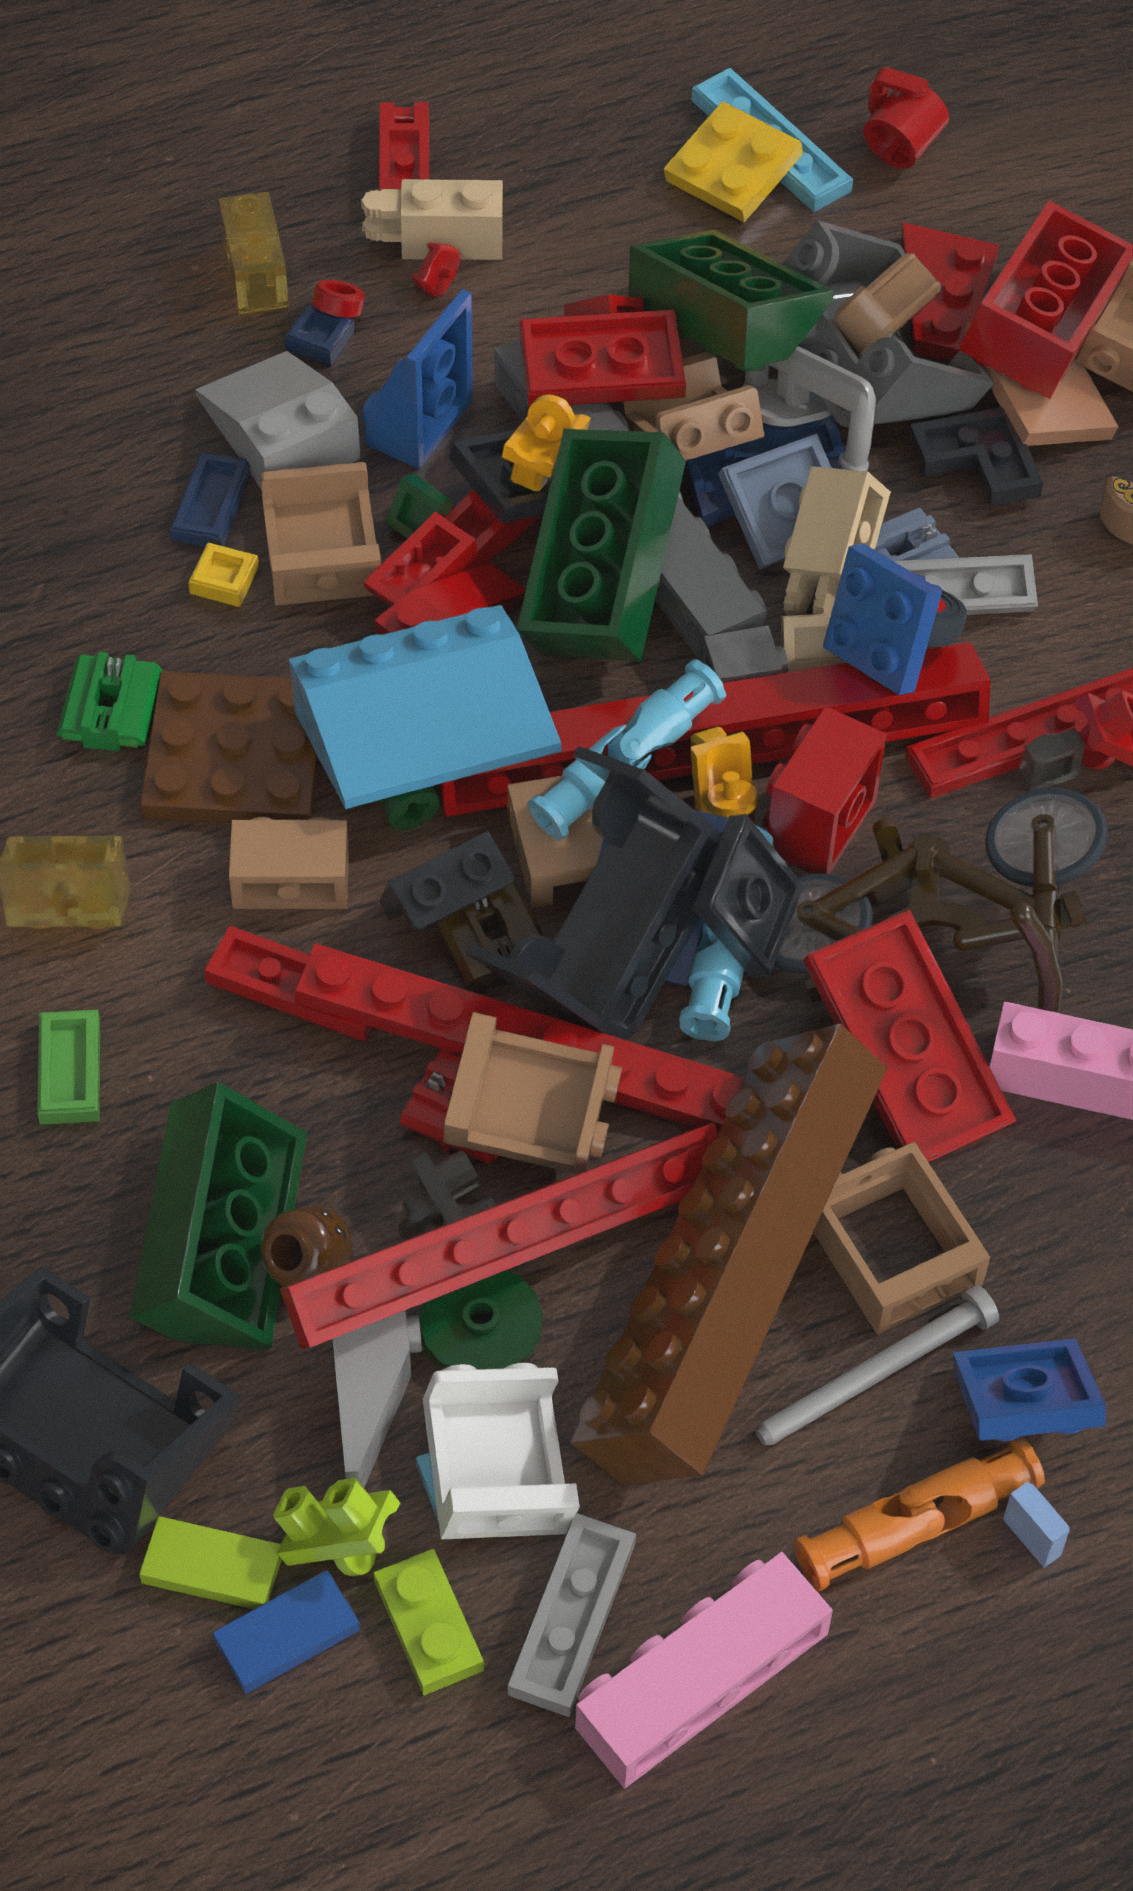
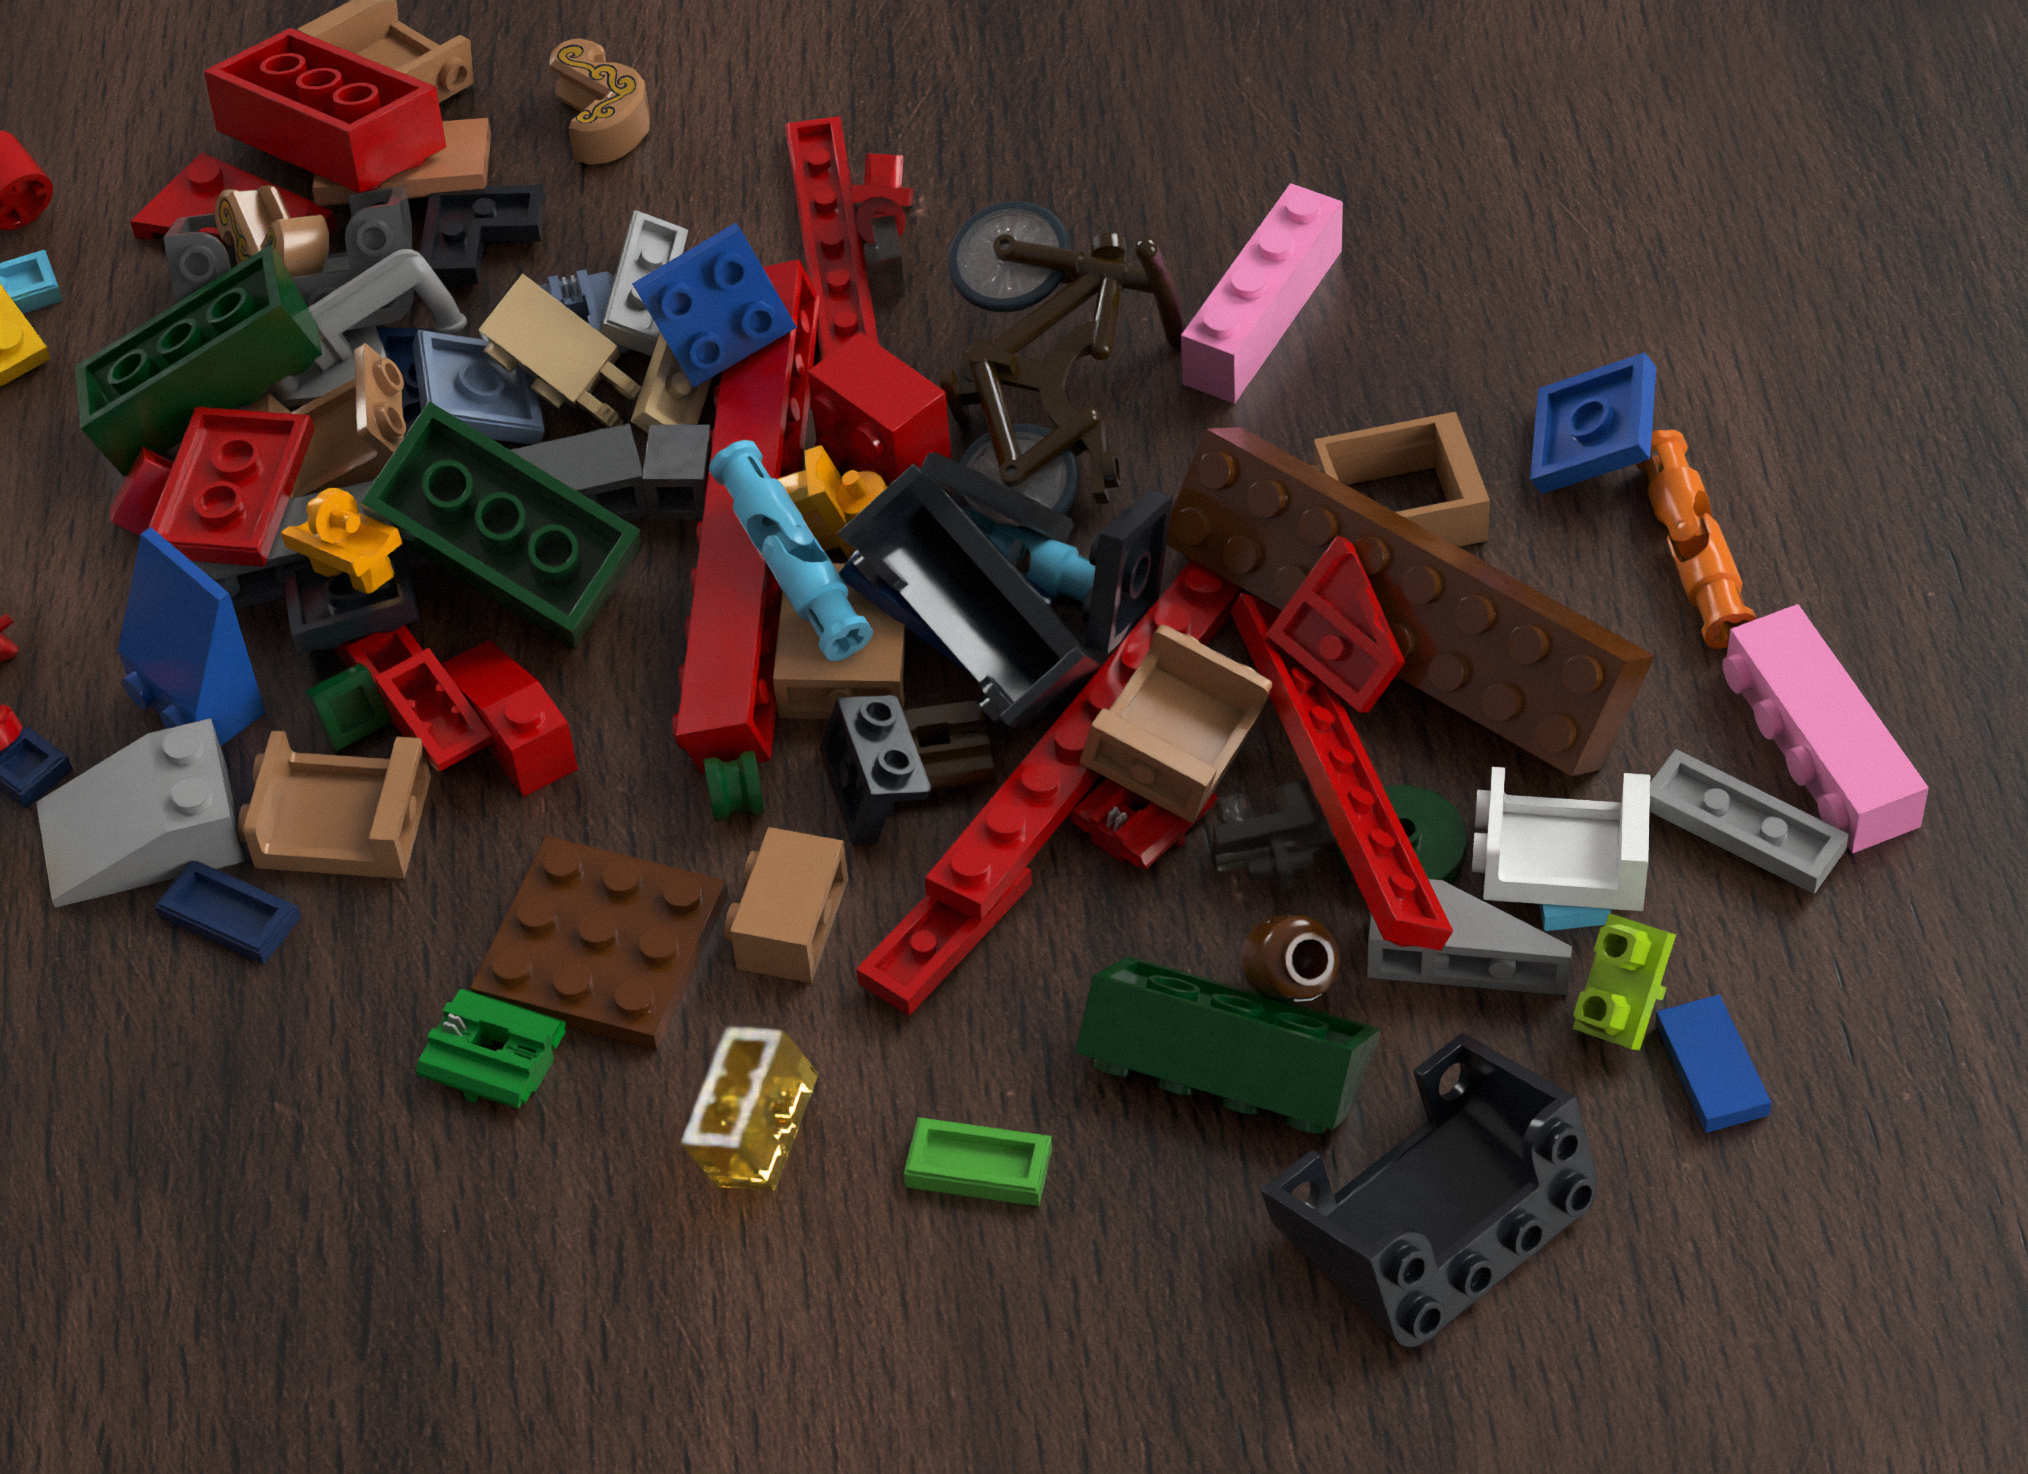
camera: 70 degrees left, 5 degrees down
(211, 1563) = (1628, 1112): lime tile -> none
(223, 574) = (345, 915): yellow tile -> none
(422, 706) = (657, 724): dark azure slope -> none
(428, 1622) = (1728, 943): lime plate -> none
(663, 1200) = (1340, 629): none -> red wing
(692, 1015) = (1127, 570): none -> black plate
(902, 1010) = (1159, 418): red tile -> none
(975, 1310) = (1489, 454): light grey bar -> none
(1036, 1524) = (1727, 454): light blue tile -> none

